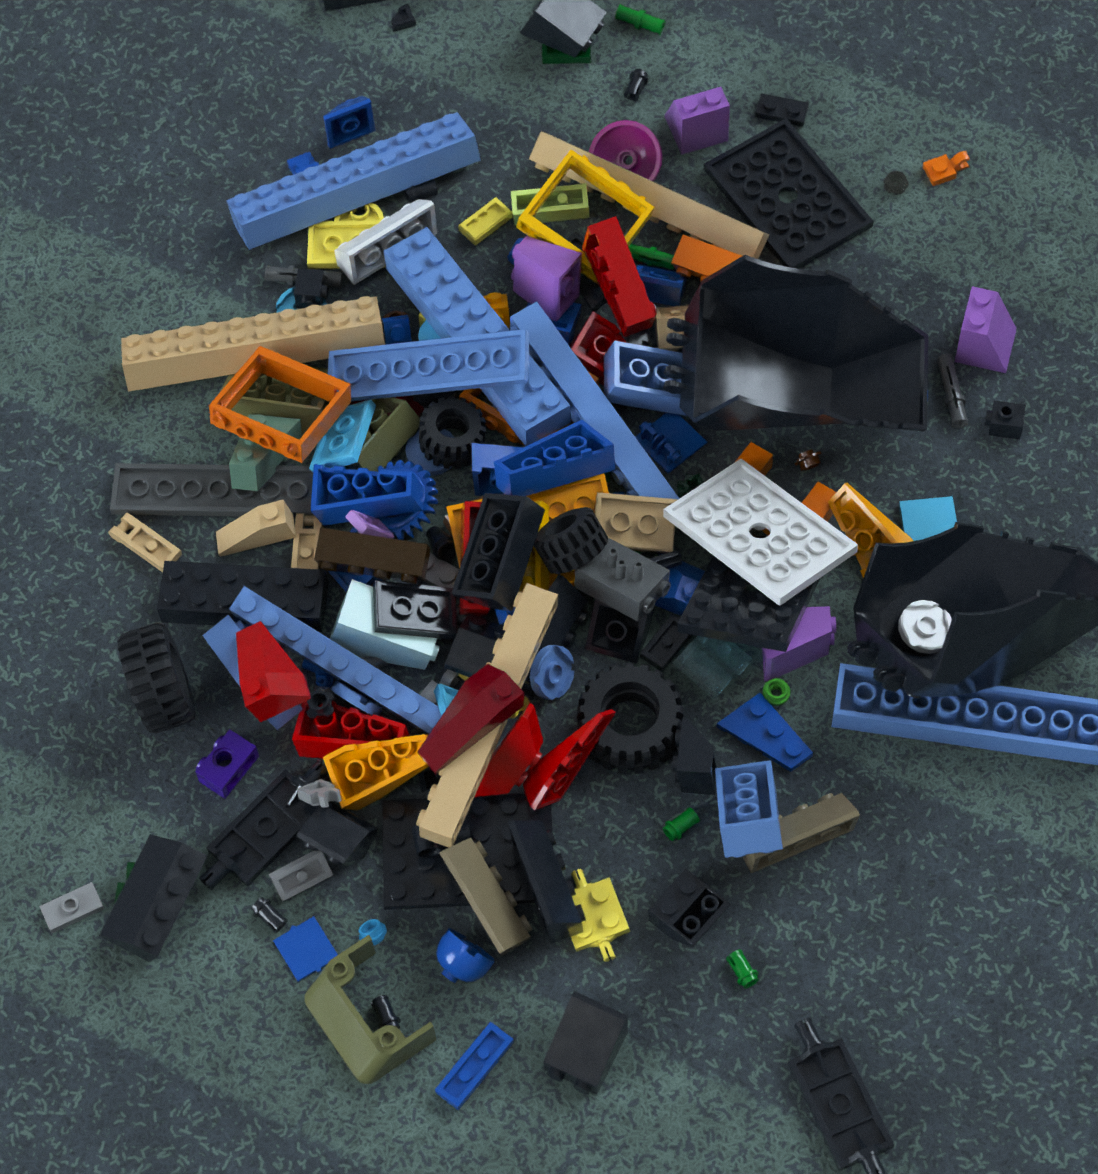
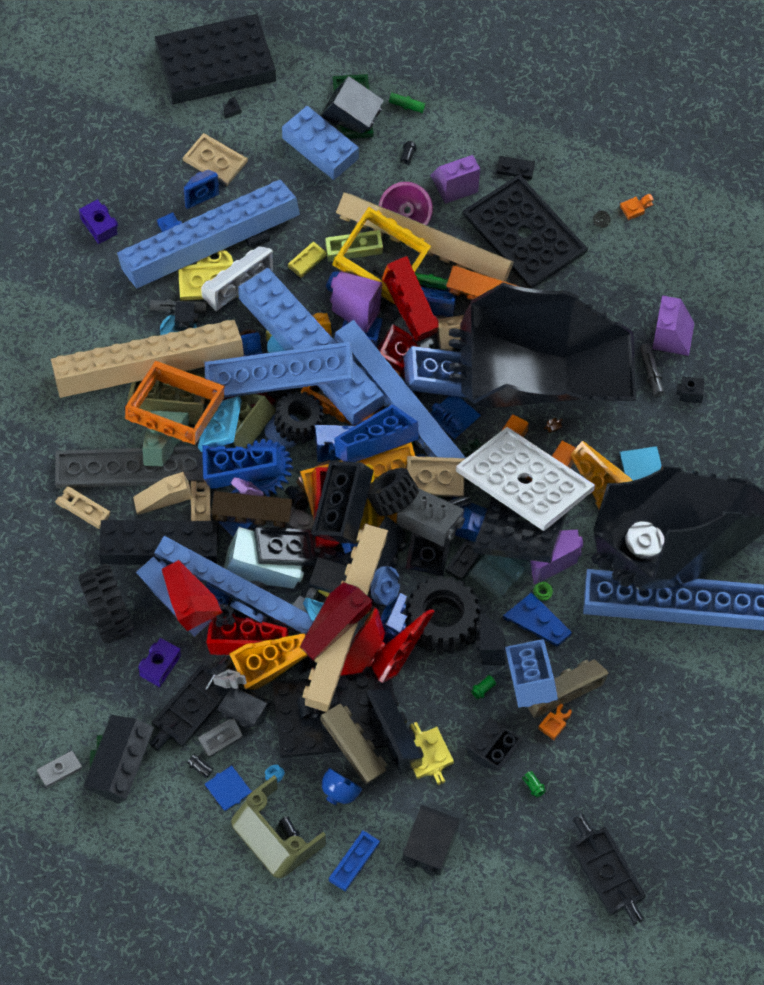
camera: 10 degrees left, 0 degrees up
(208, 159) = (97, 212): none -> dark purple brick
(376, 81) = (215, 156): none -> tan tile
(517, 67) = (320, 142): none -> medium blue brick
(558, 720) = (393, 619): none -> blue plate
(778, 883) = (554, 723): none -> orange plate

